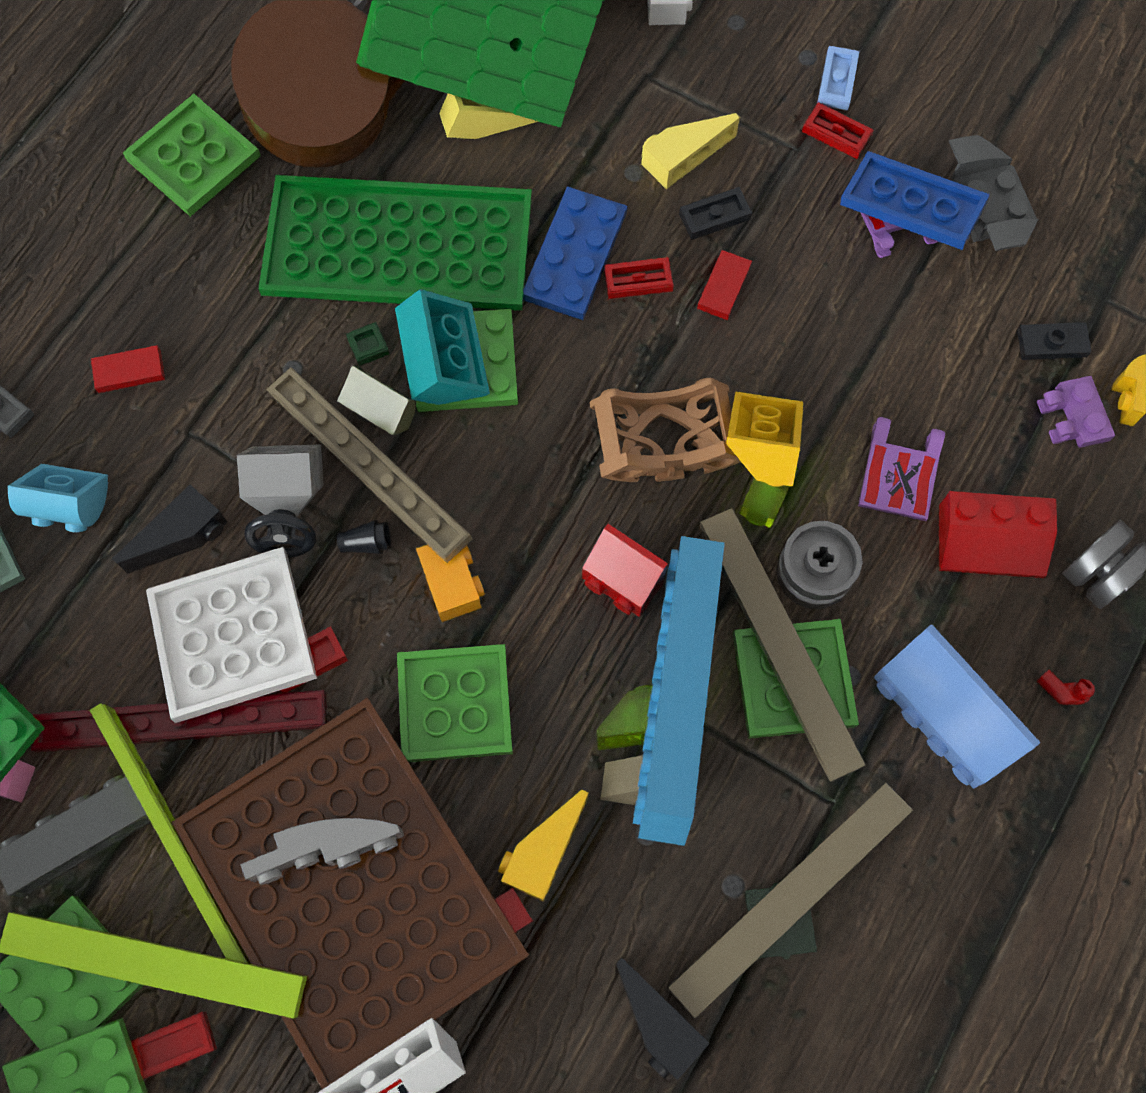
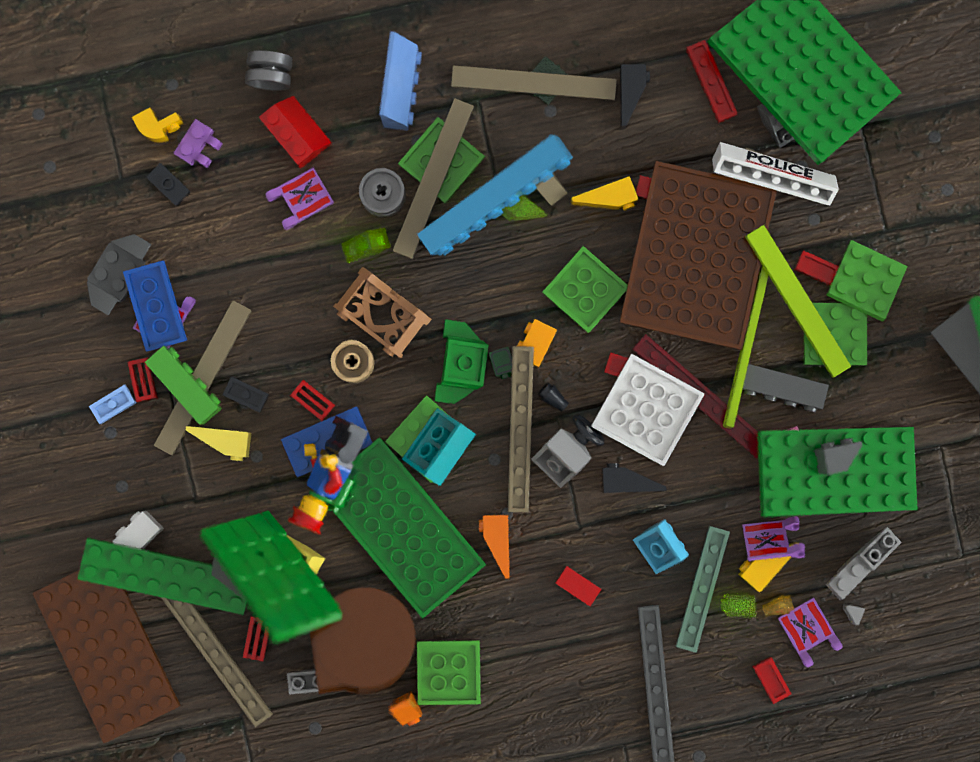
camera: 130 degrees left, 15 degrees up
(203, 70) = (406, 709): none -> orange slope
(273, 325) = (496, 536): none -> orange slope
(337, 839) = (685, 272): light grey slope -> none
(367, 344) = (463, 491): dark green tile -> none
(377, 401) = (489, 452): brick -> none
(471, 514) = (501, 362): none -> dark green brick
(518, 475) = (463, 363): none -> green piece
(527, 202) = (329, 475): none -> piece
(624, 571) = (464, 270): slope -> none
(639, 349) = (344, 353): none -> tan brick
(724, 285) = (279, 357): red tile -> none
(766, 436) = (346, 263): yellow slope -> none
(781, 194) = (207, 371): none -> dark tan tile
(790, 153) = (184, 385): none -> bright green brick
(1066, 693) = (341, 45): red arm -> none

